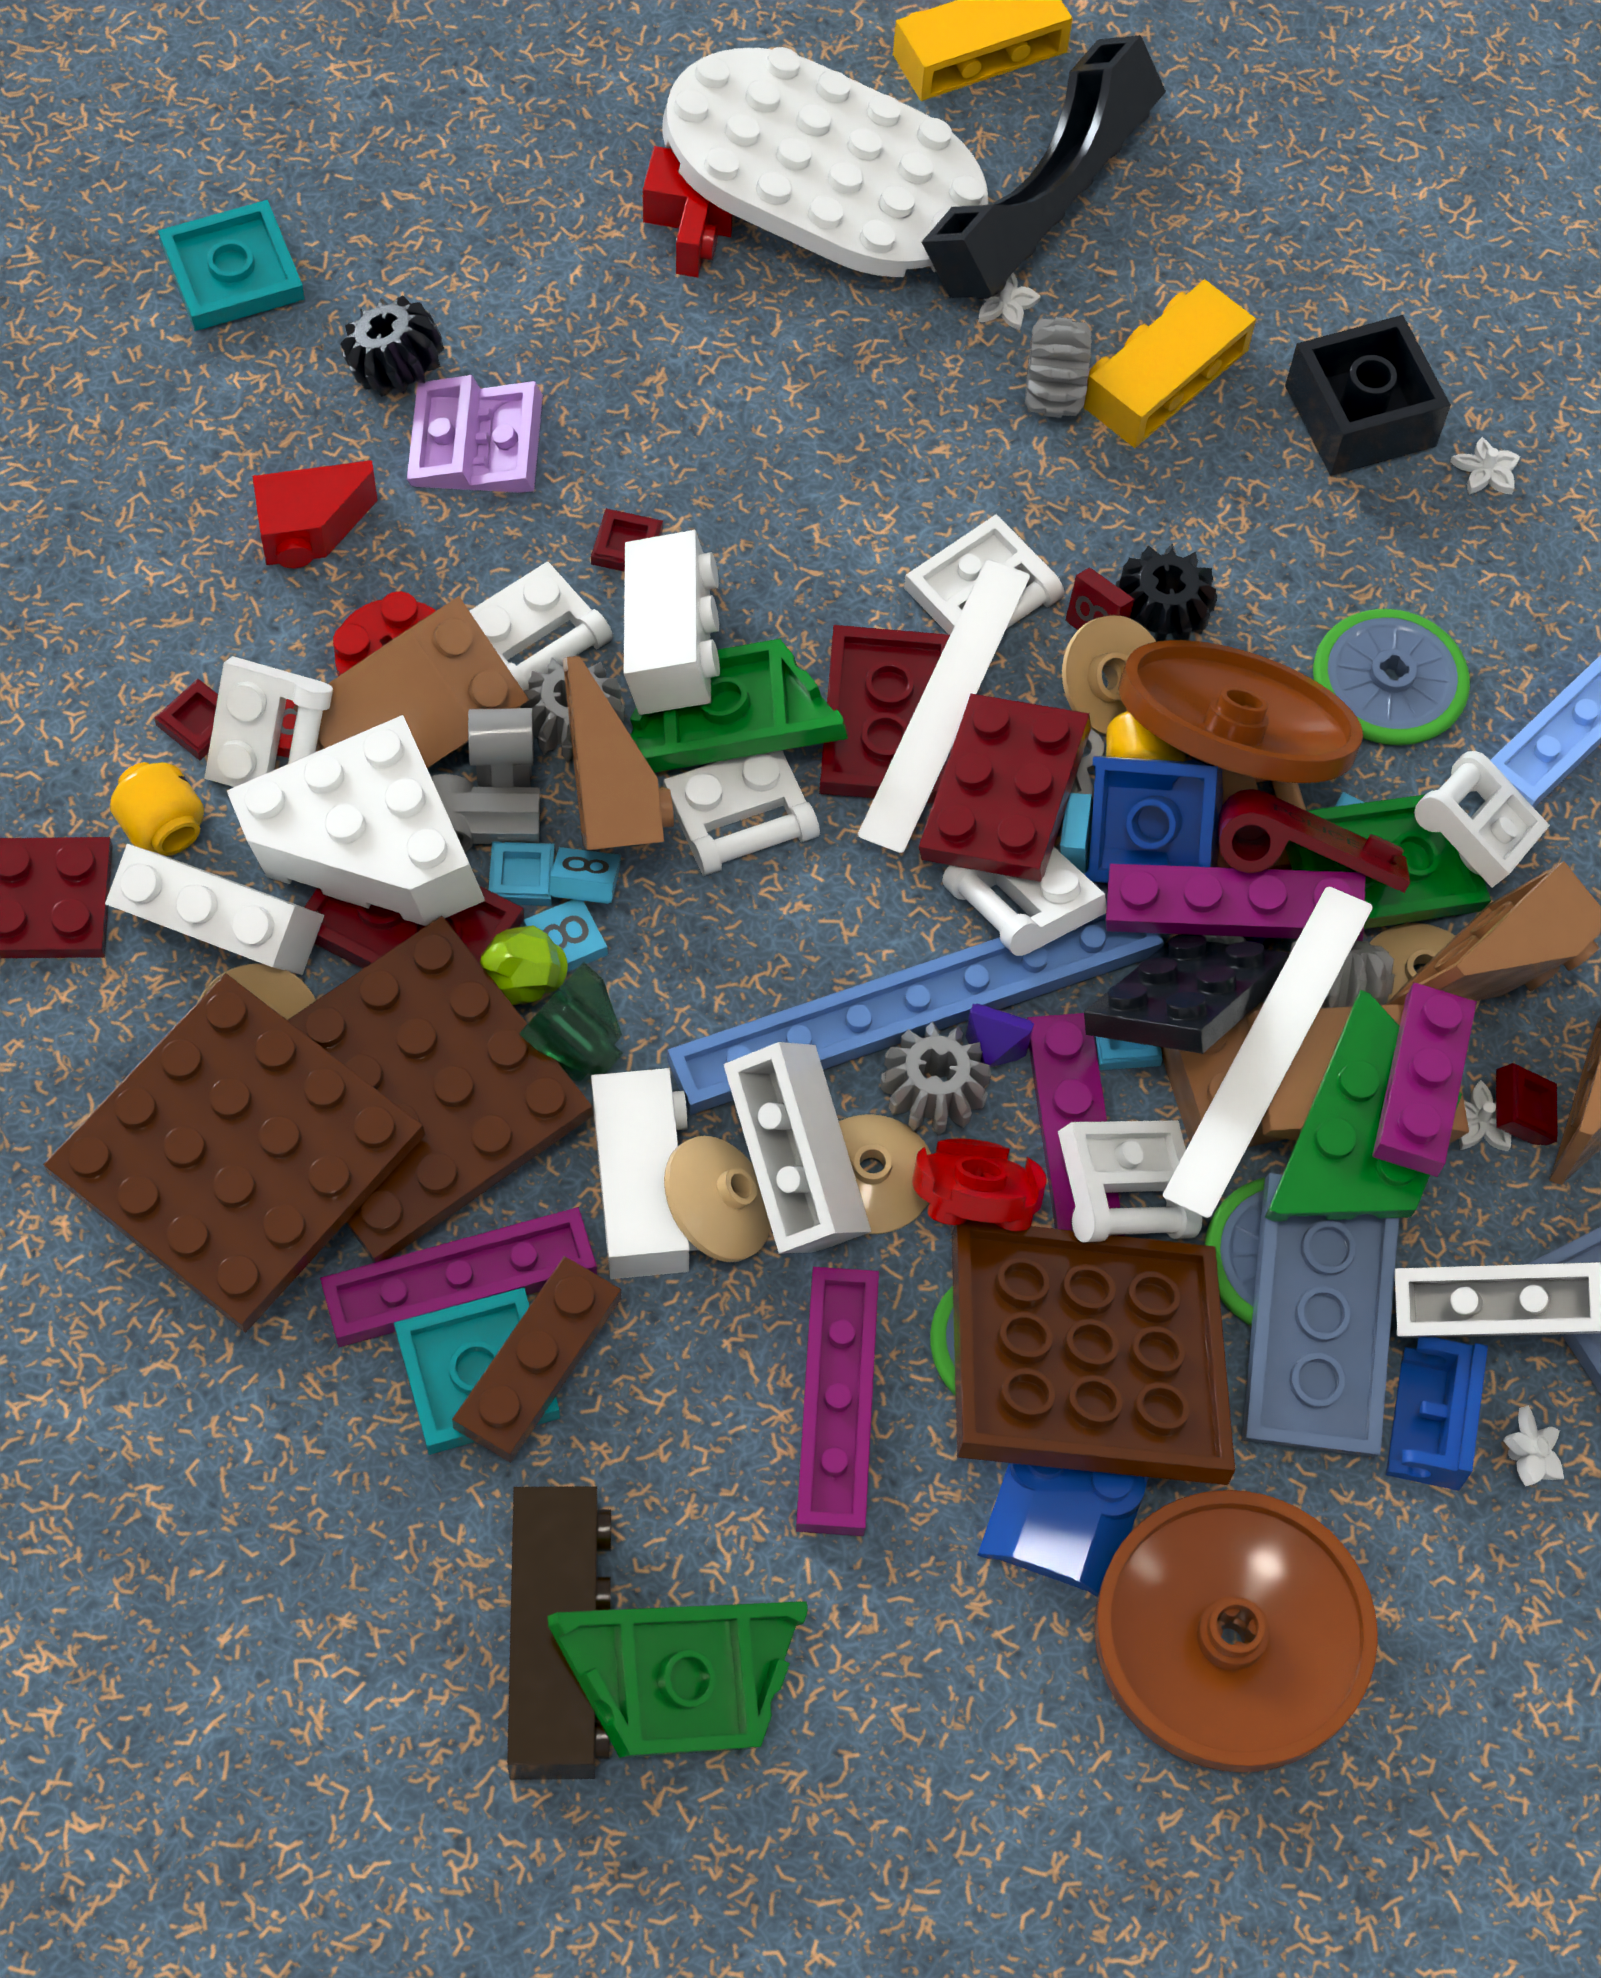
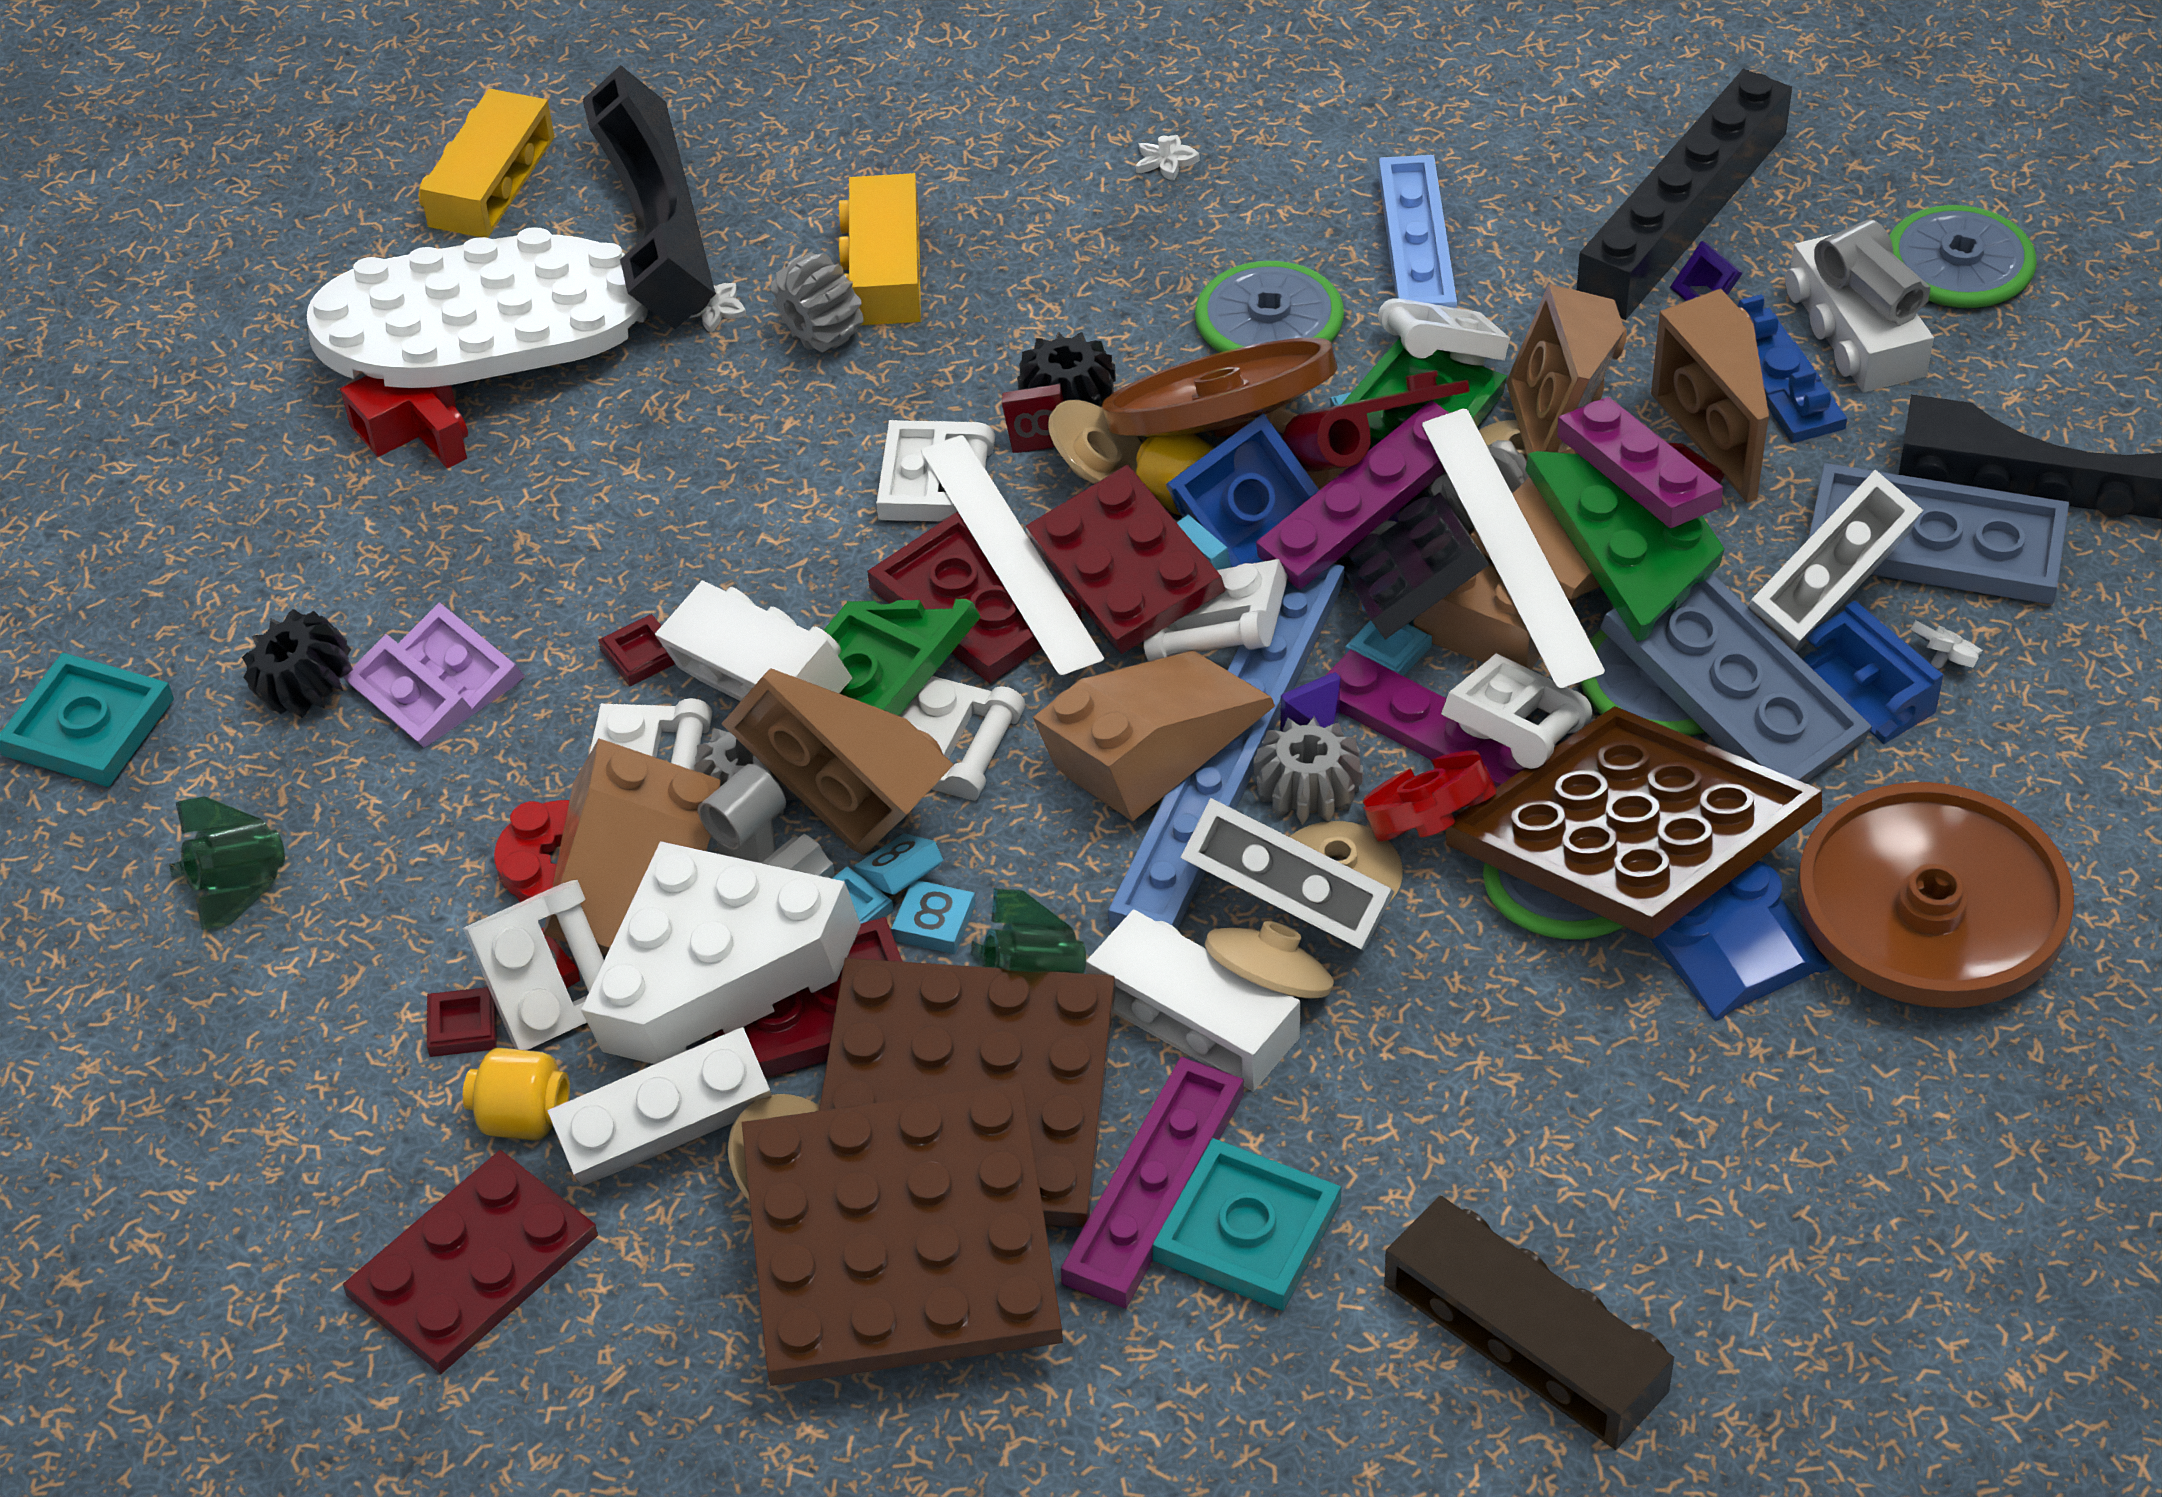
camera: 40 degrees left, 15 degrees down
(188, 458) = (229, 858): none -> clear green brick
(311, 510) = (368, 818): red slope -> none
(525, 964) = (939, 936): lime rock -> none
(537, 1359) = (1288, 1166): reddish brown plate -> none
(680, 1673) = (1645, 1255): green wing -> none
(837, 1402) = (1510, 1012): magenta plate -> none
(863, 936) = (1147, 727): none -> medium nougat slope
(1367, 395) = (1043, 164): black brick -> none

